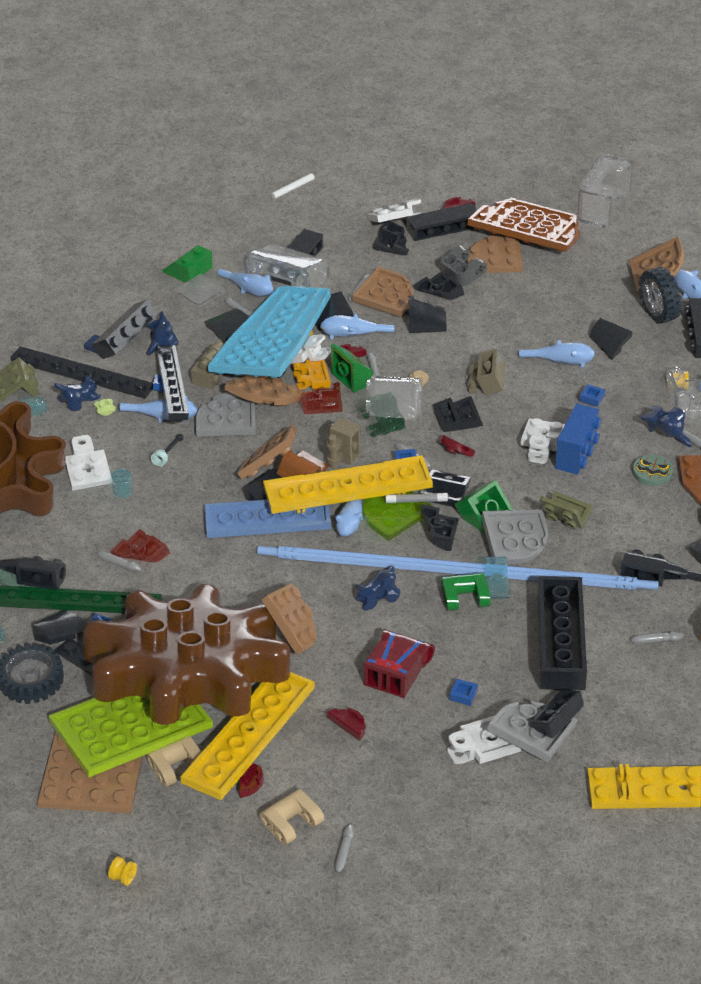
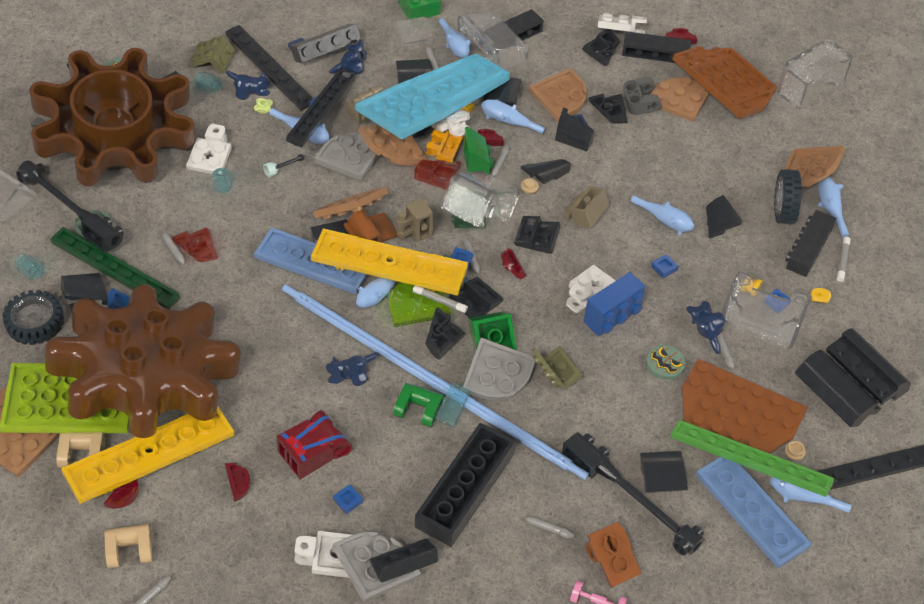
camera: 25 degrees right, 10 degrees up
(292, 617) = (254, 364): medium nougat plate -> none
(424, 359) = (547, 170): none -> black slope

